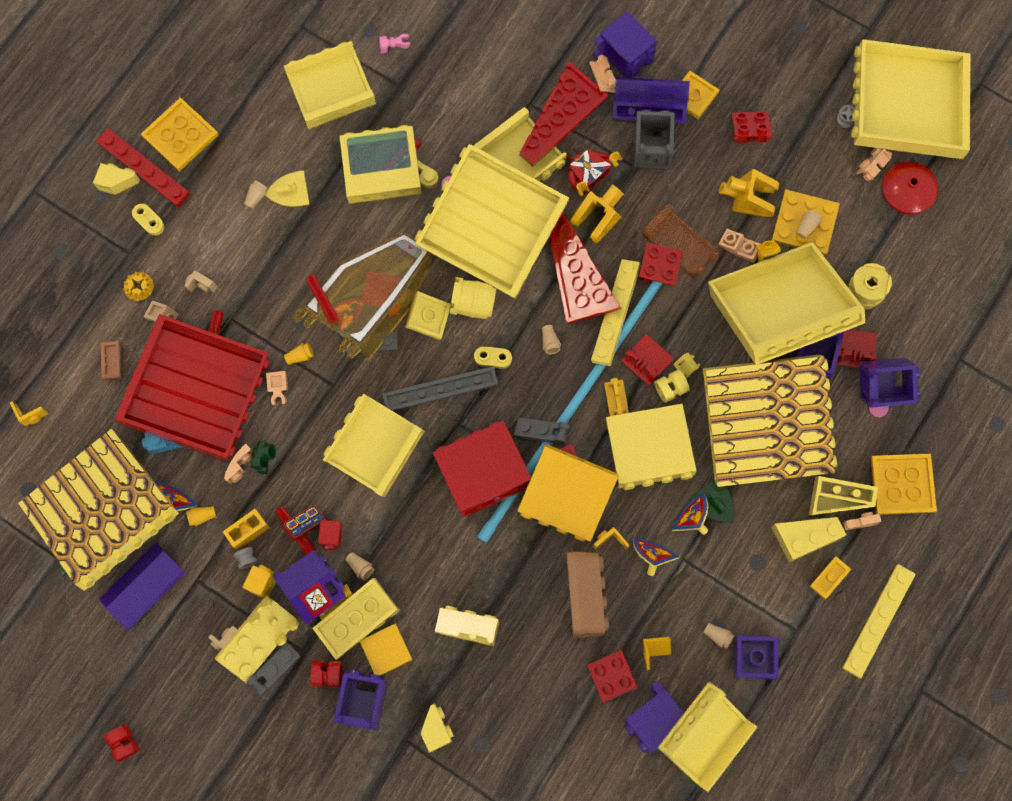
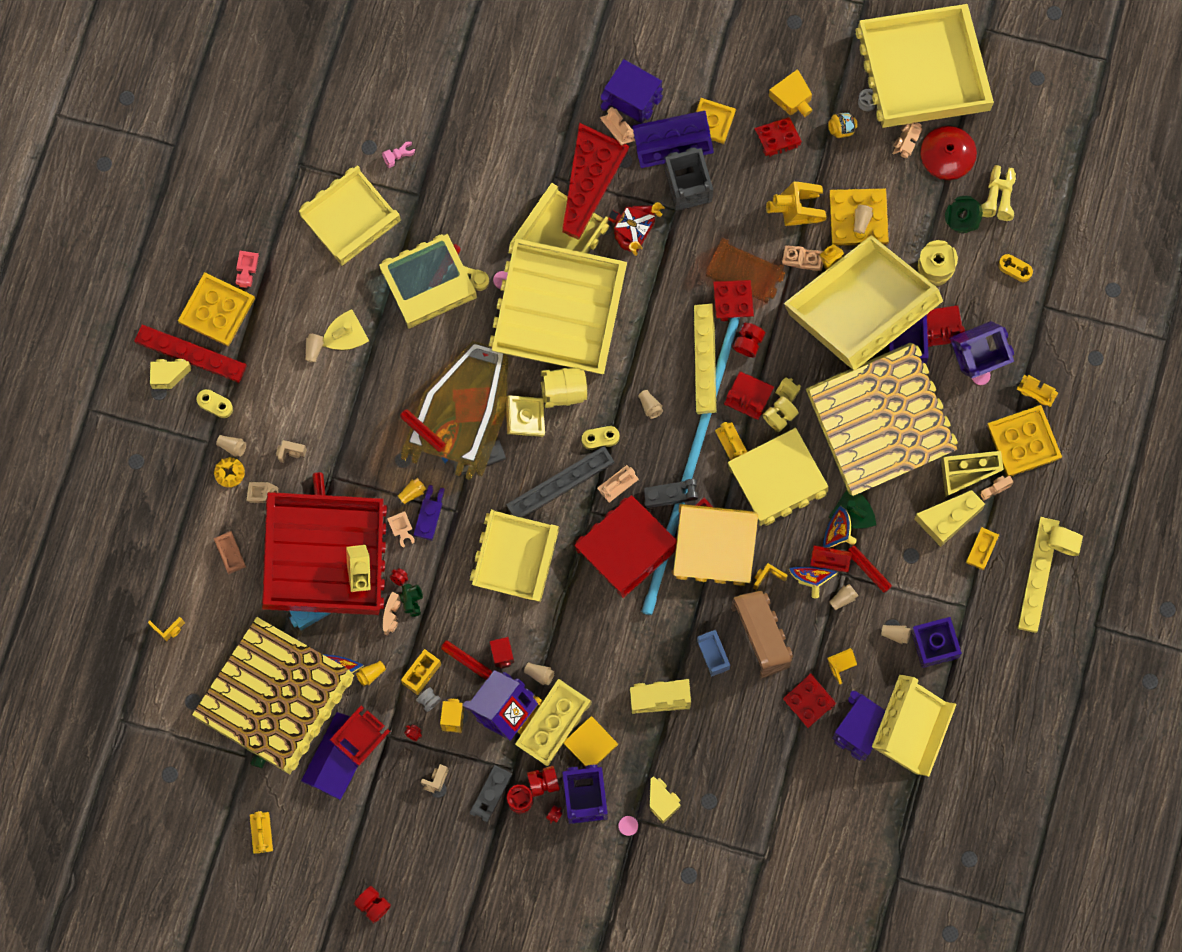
camera: 20 degrees left, 0 degrees up
(44, 637) = (261, 832): none -> yellow hinge
(150, 263) = (232, 445): none -> tan cone
(169, 571) = (362, 733): none -> red container
(218, 411) = (358, 568): none -> light yellow slope
(220, 585) = (413, 732): none -> red plate
(222, 102) = (247, 264): none -> coral plate
(257, 638) = (466, 769): light yellow hinge -> none
(259, 431) = (399, 577): none -> red plate
(297, 684) = (520, 799): none -> red wheel
(303, 522) = (472, 649): tile -> none
(308, 381) = (429, 515): none -> dark purple hinge
(327, 710) = (554, 814): none -> red plate
(395, 743) = (628, 825): none -> bright pink piece
(495, 406) = (618, 483): none -> light nougat hinge
(533, 599) = (713, 653): none -> medium blue panel
(580, 281) = (661, 339): wing -> none
(611, 217) = (663, 254): yellow piece -> none
(663, 307) = (749, 339): none -> red wheel
(677, 541) = (831, 558): none -> red plate
(678, 583) = (843, 597): none -> tan cone
(711, 563) = (869, 569): none -> red axle
(776, 91) = (792, 94): none -> yellow torso
(816, 132) = (842, 125): none -> head
(912, 257) = (972, 219): none -> dark green plate
(915, 596) = (1065, 541): none -> light yellow beam
(934, 250) = (989, 208): none -> light yellow piece
(936, 445) = (1044, 395): none -> yellow hinge
(943, 314) = (1018, 264): none -> yellow beam

